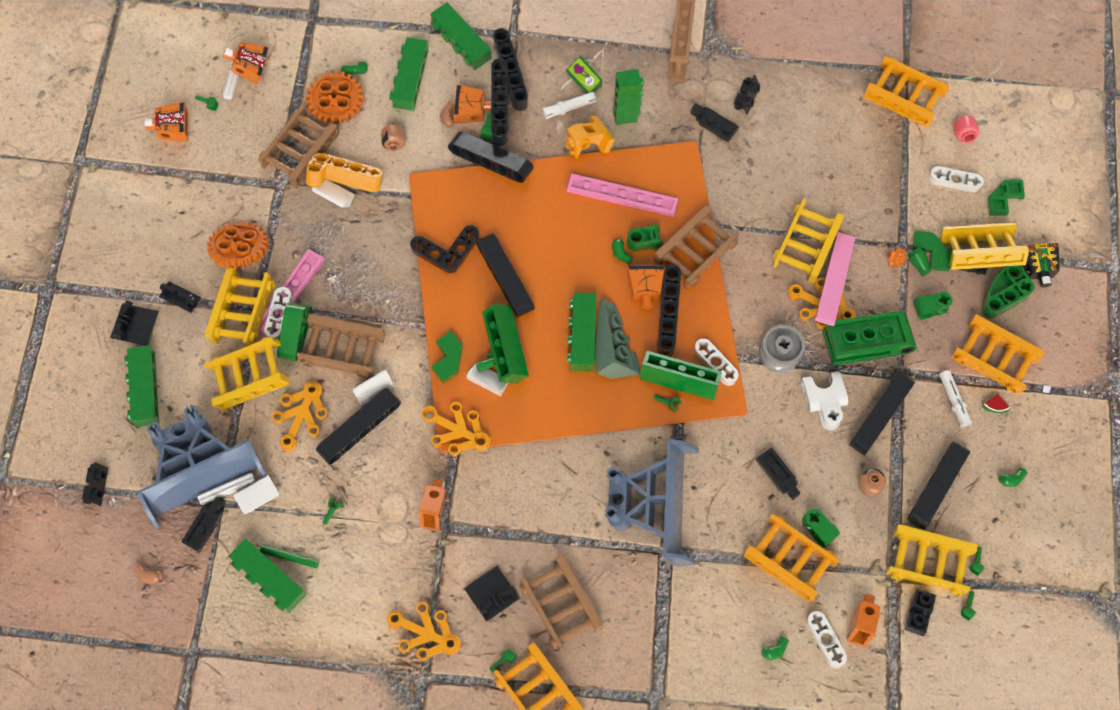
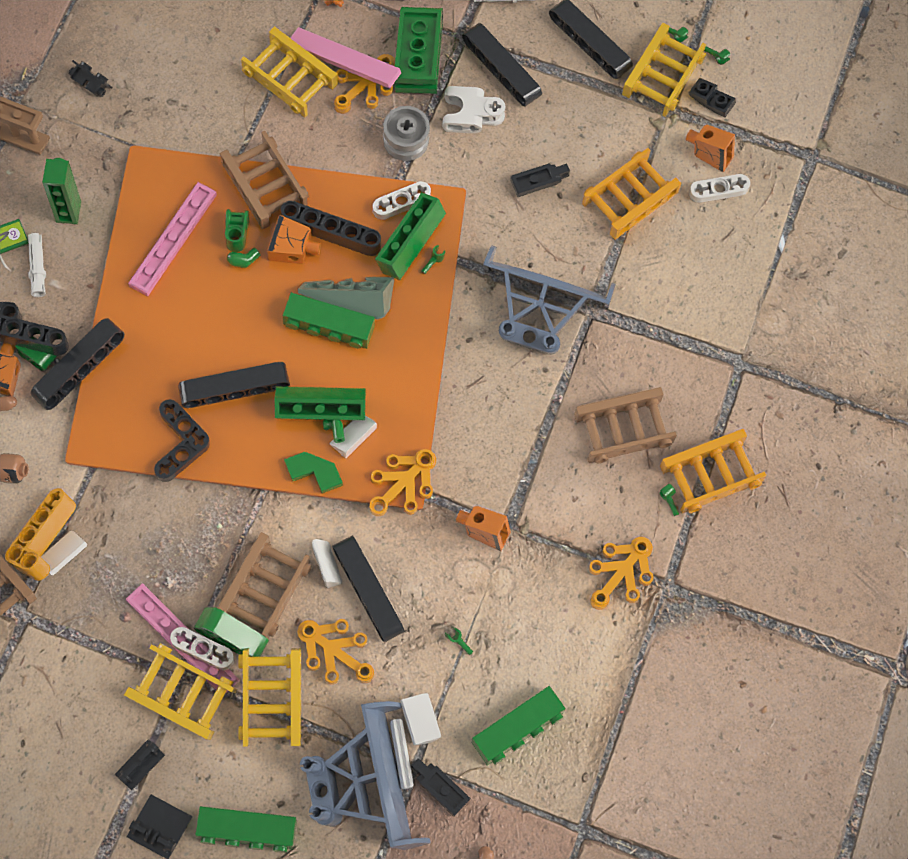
camera: 80 degrees left, 0 degrees up
(238, 245) = (96, 678): orange gear -> none
(289, 556) = (500, 698): green bar -> none
(492, 593) = (595, 492): black hinge -> none
(582, 135) = (90, 257): light orange tile -> none
(714, 122) = (112, 121): black hinge -> none
(777, 651) = (720, 234): green arm -> none
(821, 529) = (606, 158): green piece -> none
(872, 482) = (573, 95): nougat head -> none

